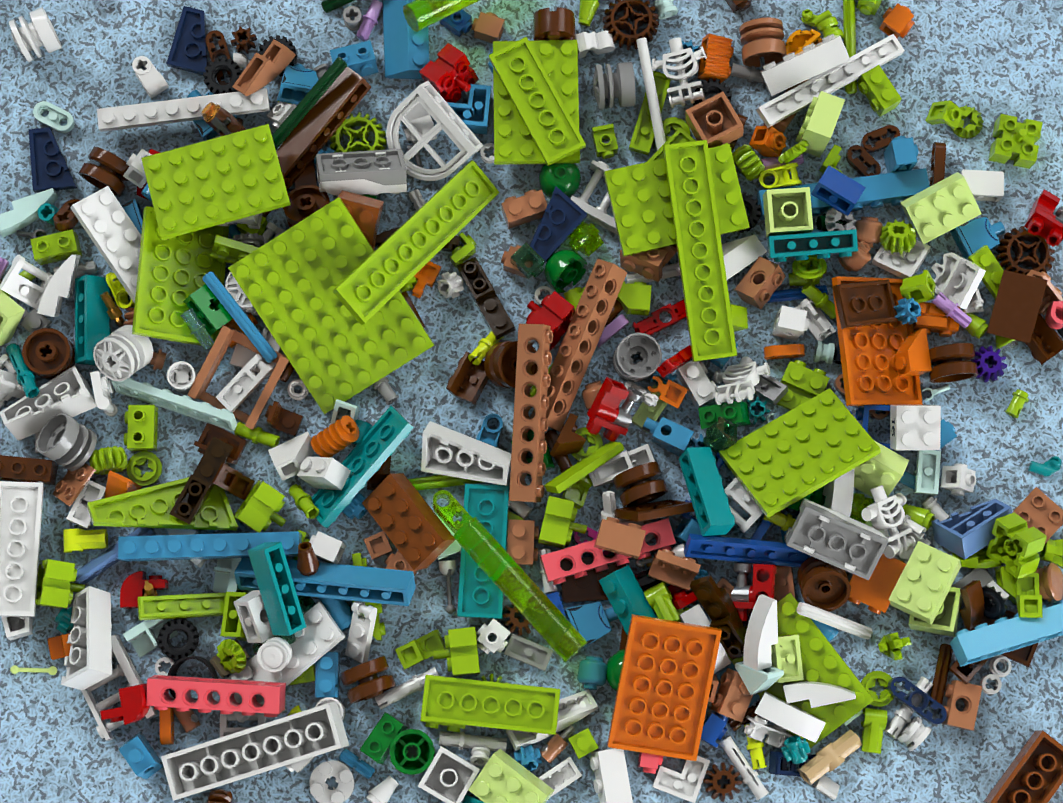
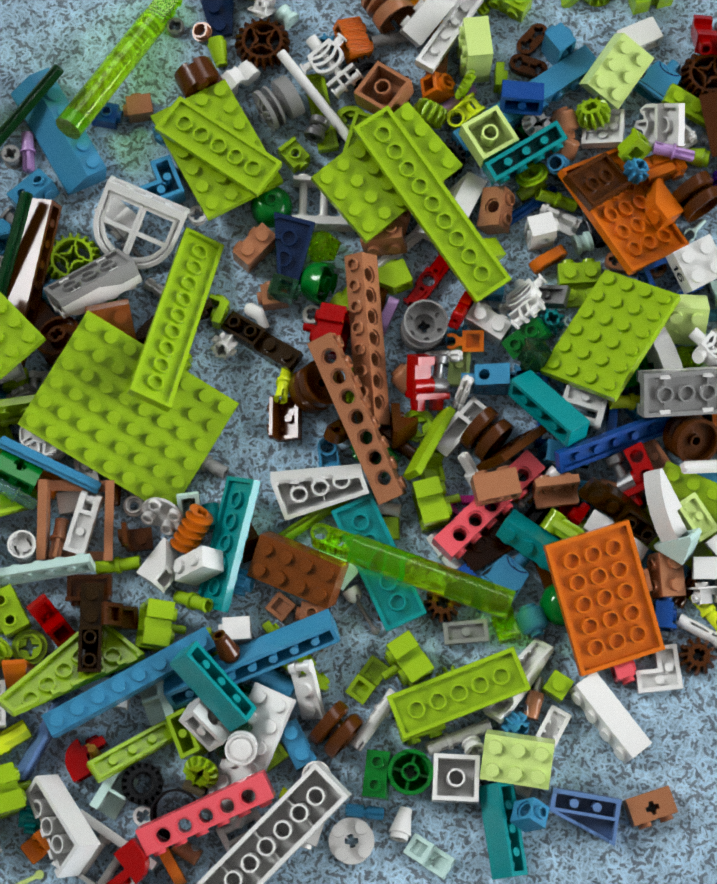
camera: 25 degrees left, 5 degrees down
(173, 455) = (50, 620): none -> red brick
(217, 385) = (58, 538): none -> nougat axle
(317, 409) = (161, 513): none -> white dish
(424, 277) = (198, 350): orange plate -> none
(450, 73) = (126, 160): red brick -> none
(496, 270) = (257, 313): none -> white arm
(496, 629) = (431, 627): white brick -> none
(504, 415) = (335, 433): none -> reddish brown beam
(521, 541) = (407, 535): nougat bracket -> none
(566, 671) = (507, 629): none -> clear neon green bracket
(637, 126) = (317, 128): none -> flat silver wheel
(640, 435) = (462, 392): none -> white axle
(836, 265) = (555, 160): none -> dark azure brick
(938, 162) = (591, 35): reddish brown beam -> none

